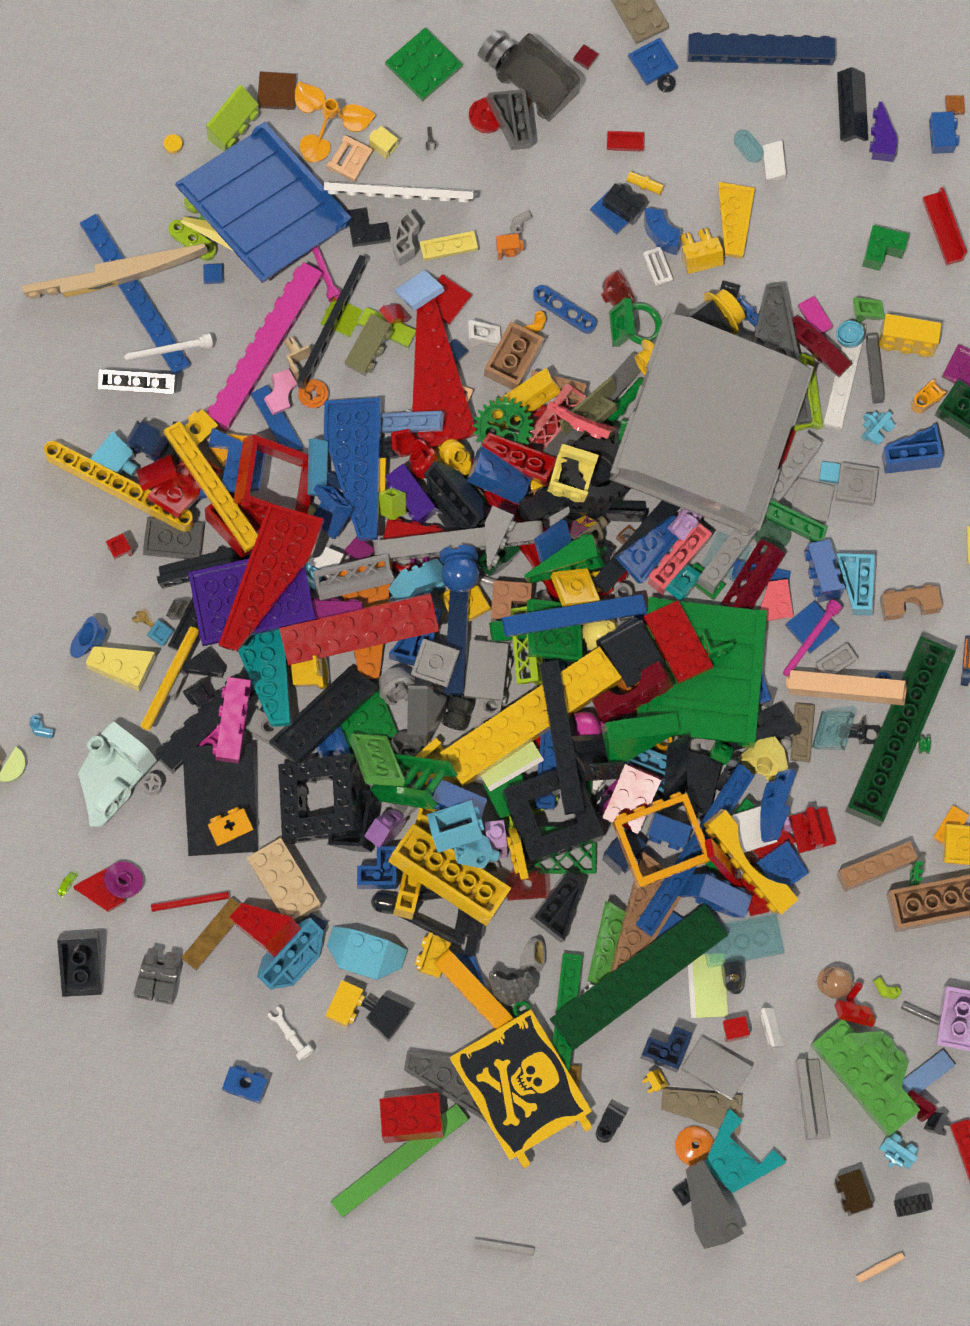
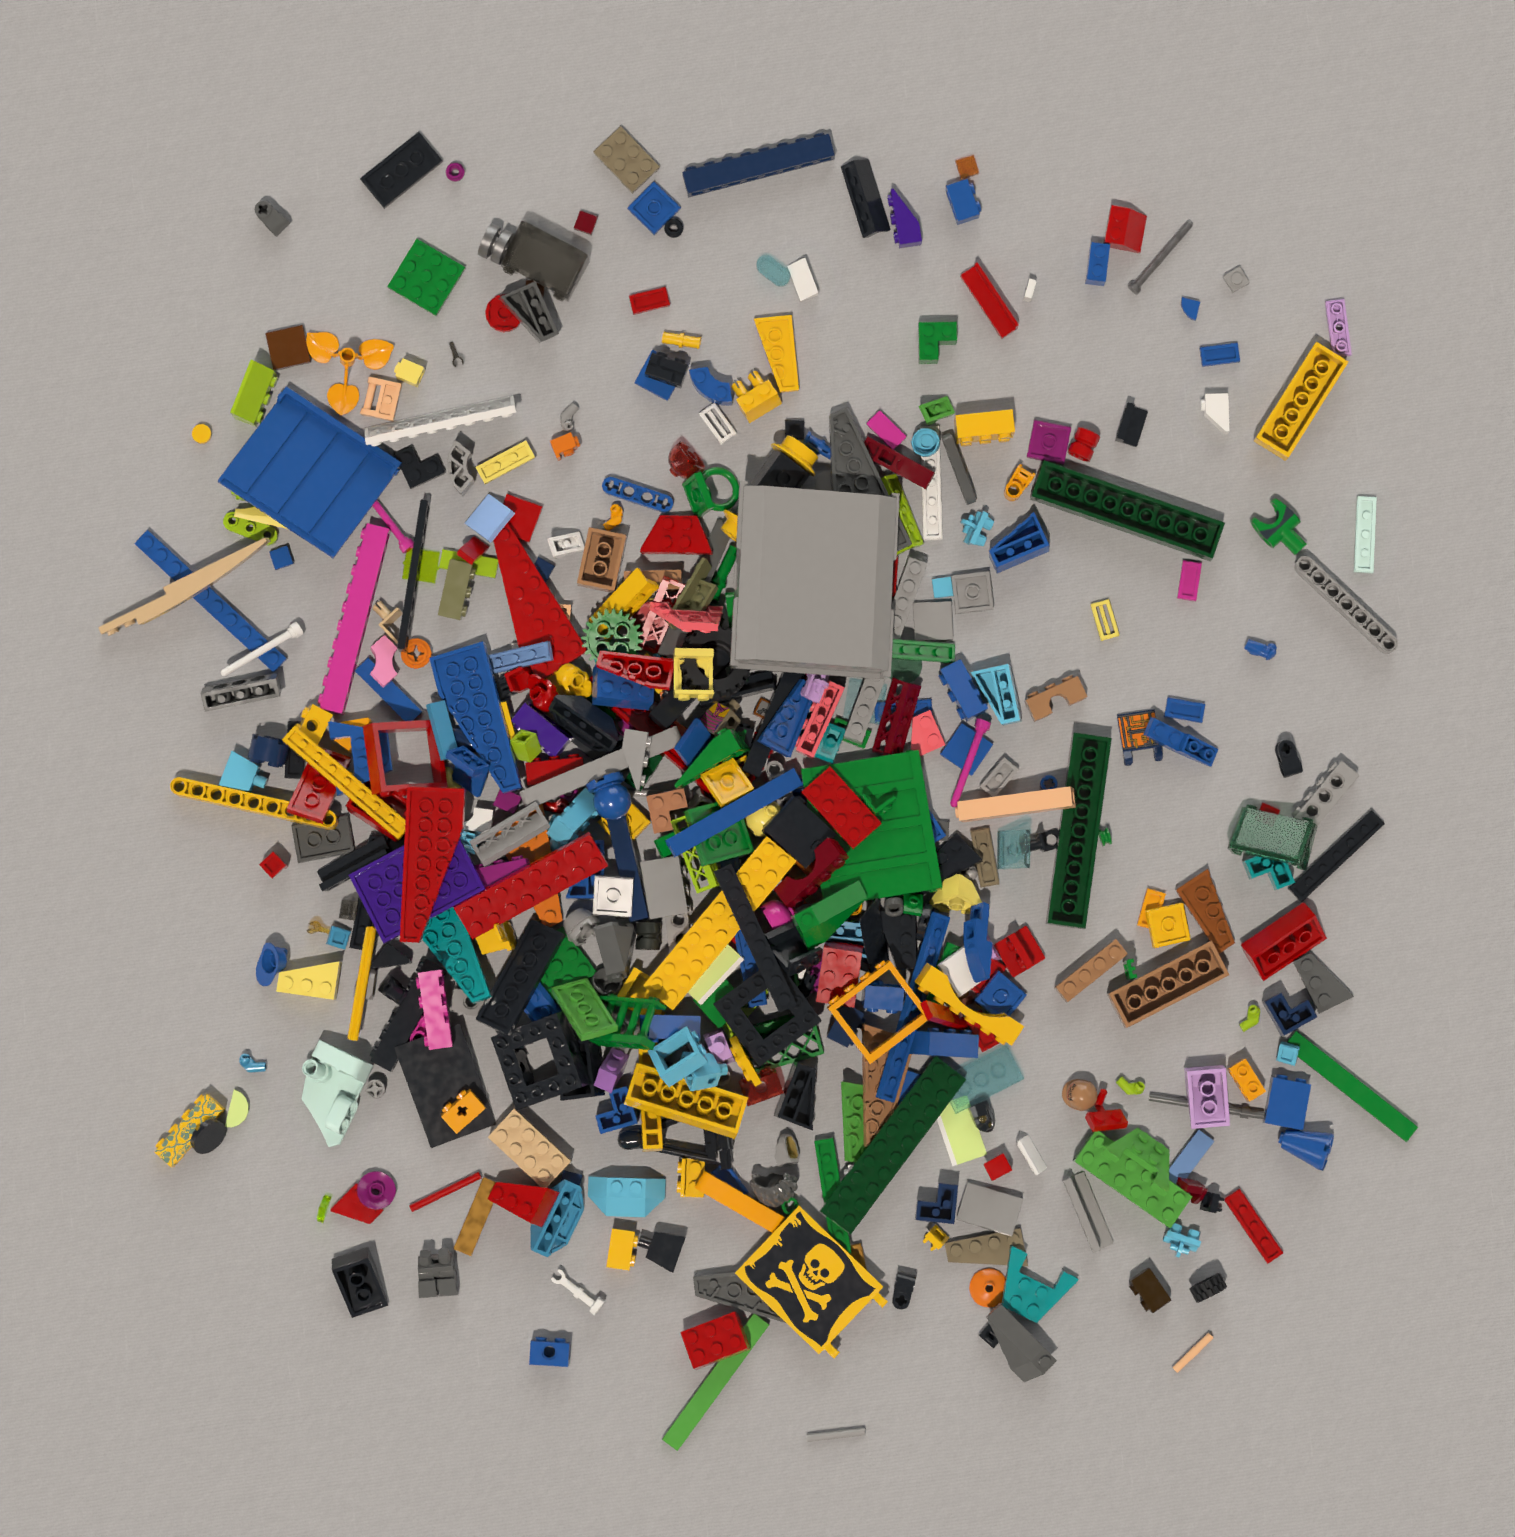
camera: 10 degrees left, 10 degrees up
(156, 473) = (287, 781): red tile -> none
(590, 355) = (677, 536): none -> red wing
(702, 749) = (893, 904): none -> dark grey tile

